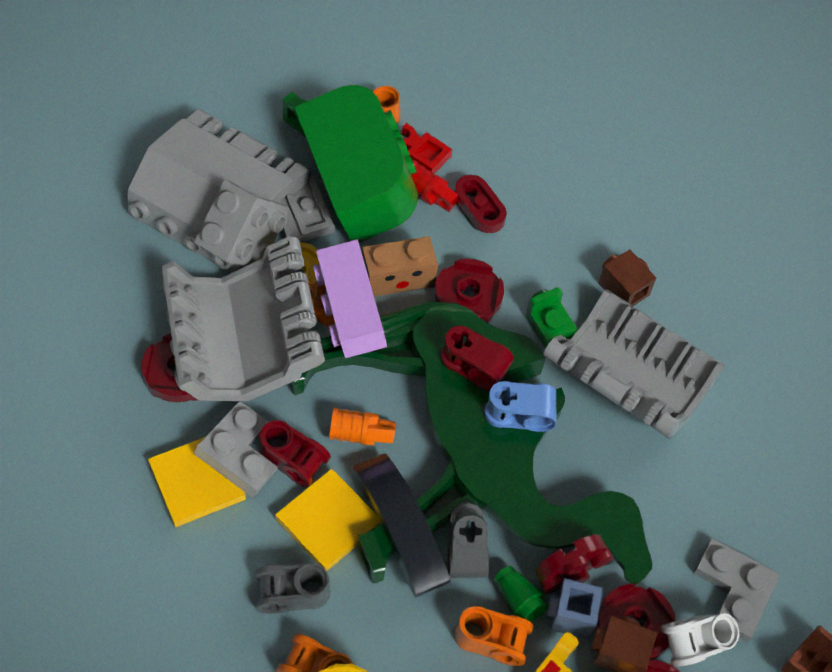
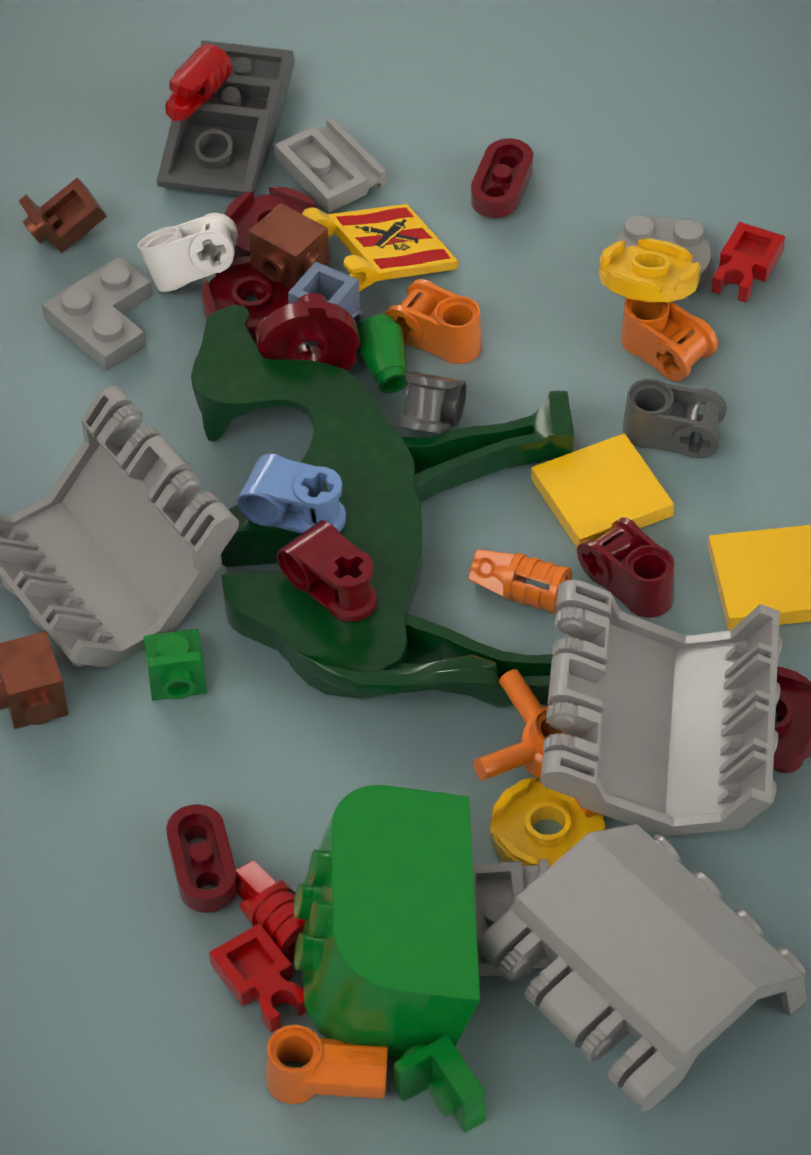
camera: 155 degrees left, 10 degrees down
(230, 453) = (716, 578): light grey plate -> none
(241, 225) = (639, 815): light grey bracket -> none
(349, 299) = (490, 674): lavender brick -> none
(401, 266) = (377, 758): medium nougat brick -> none
(404, 523) = (512, 452): black slope -> none
(474, 274) = (283, 753): dark red plate -> none

